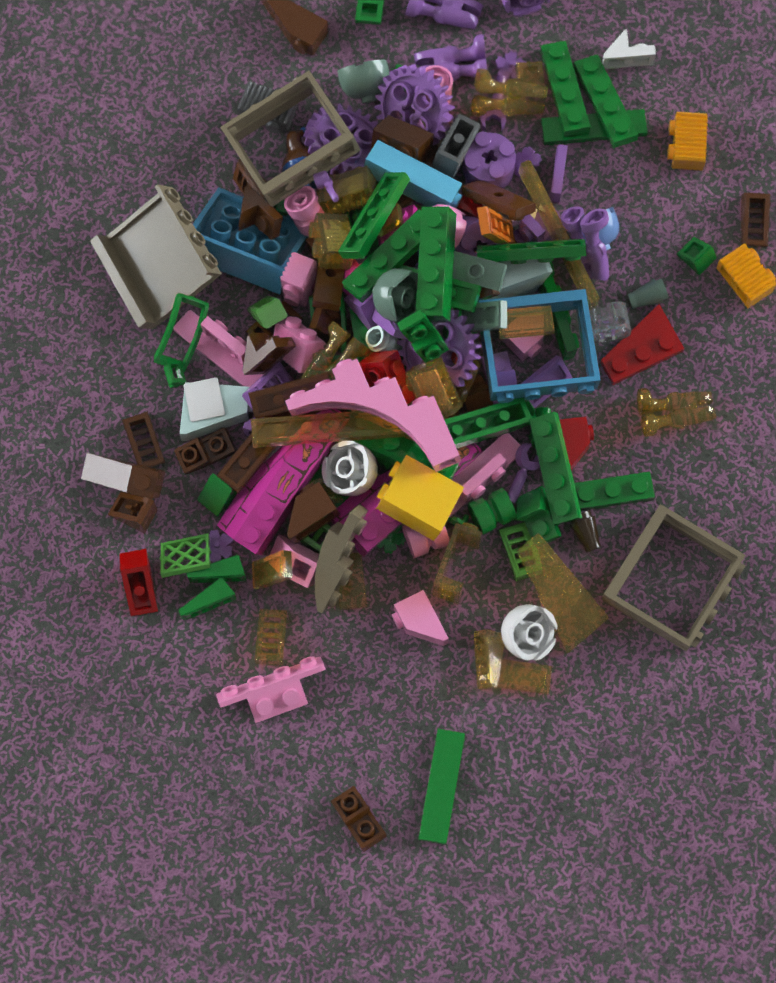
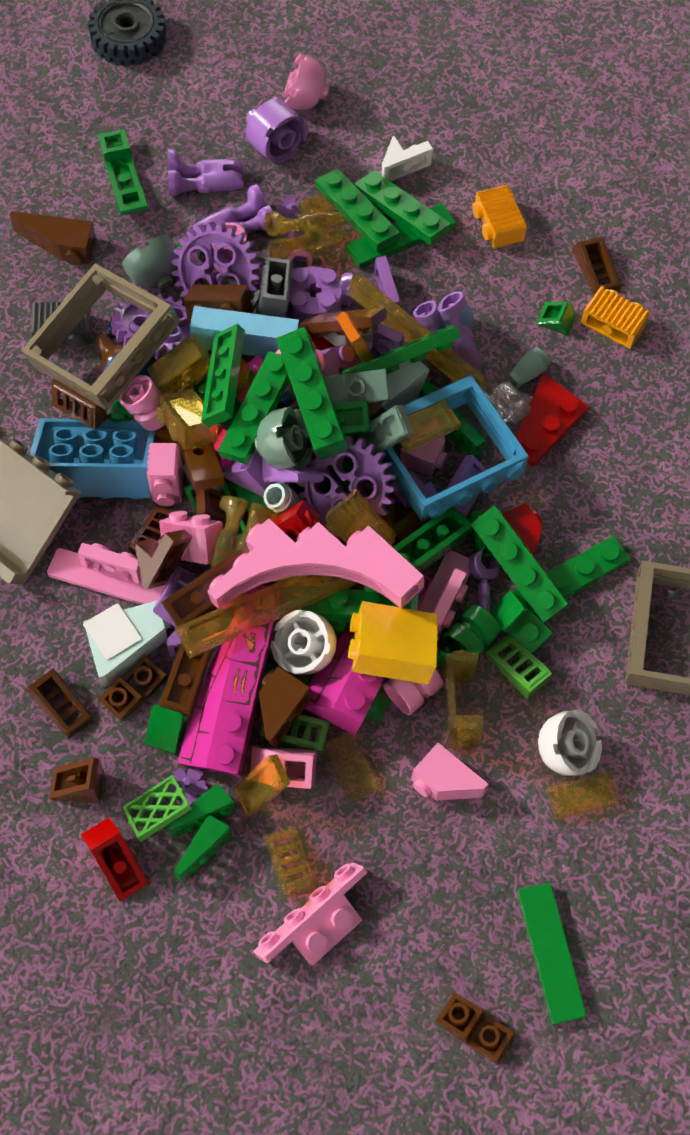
camera: 25 degrees left, 10 degrees down
(123, 475) = (50, 747): slope -> none
(169, 362) = (58, 610): green sword -> none
(259, 213) = (98, 423): reddish brown slope -> none
(267, 311) = (145, 516): bright green slope -> none
(323, 180) = (153, 363): medium lavender hand -> none
(334, 560) = (329, 752): dark tan slope -> none
(423, 336) = (329, 470): green slope -> none
(488, 658) = (533, 781): clear yellow slope -> none
(561, 593) = (583, 689): clear yellow wing -> none
(586, 531) = (578, 619): dark brown cone -> none
(683, 410) = (617, 461): clear yellow piece -> none

